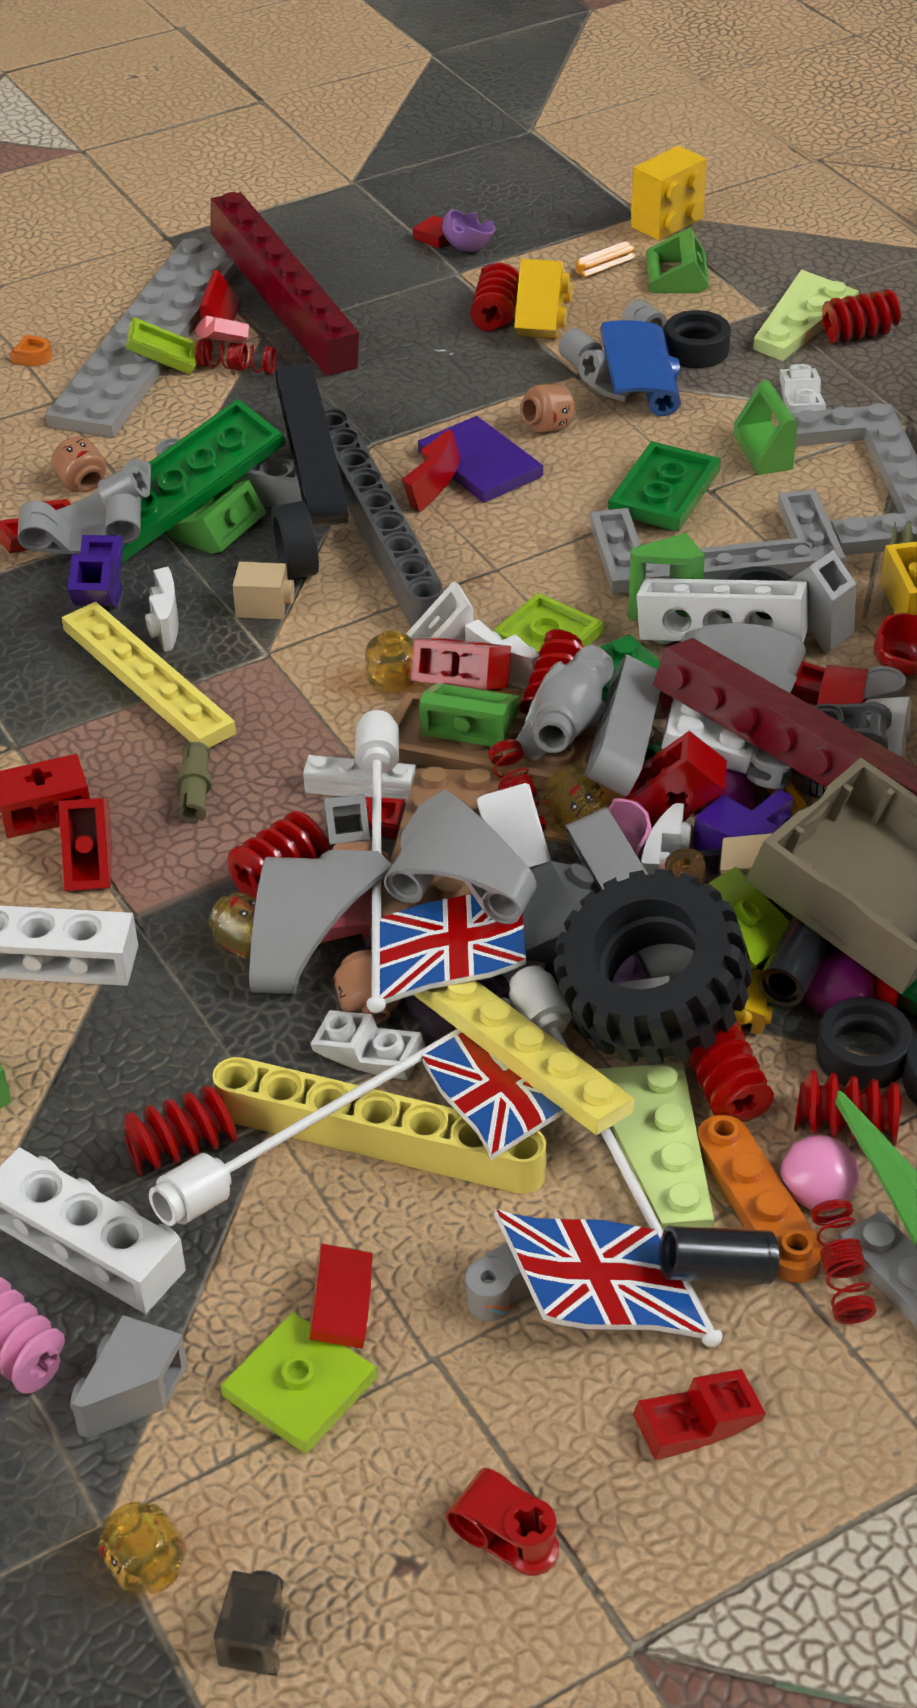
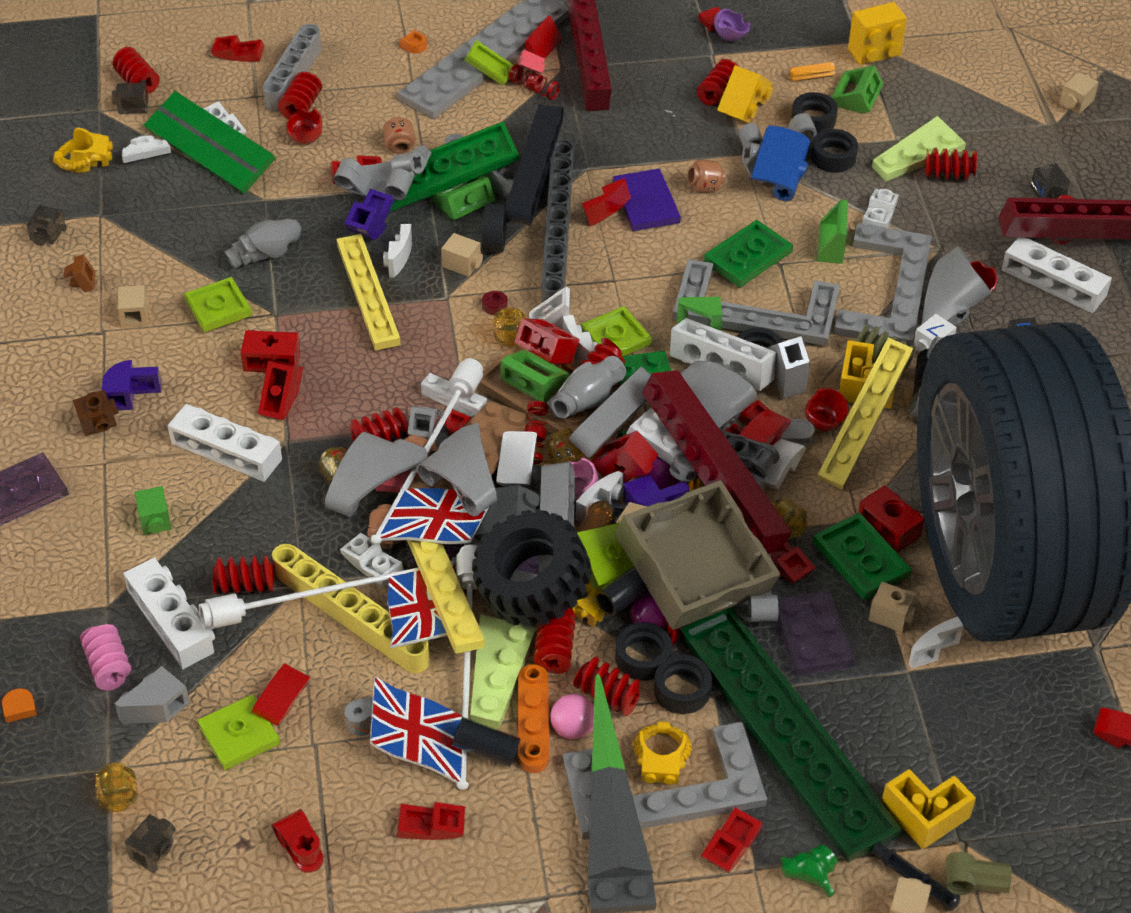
camera: 20 degrees right, 5 degrees up
(193, 782) = (359, 369): olive pin -> none
(344, 641) = (494, 301): none -> dark red tile
(651, 289) = (818, 102): none -> black tyre
(843, 1260) = (552, 768): red piece -> none

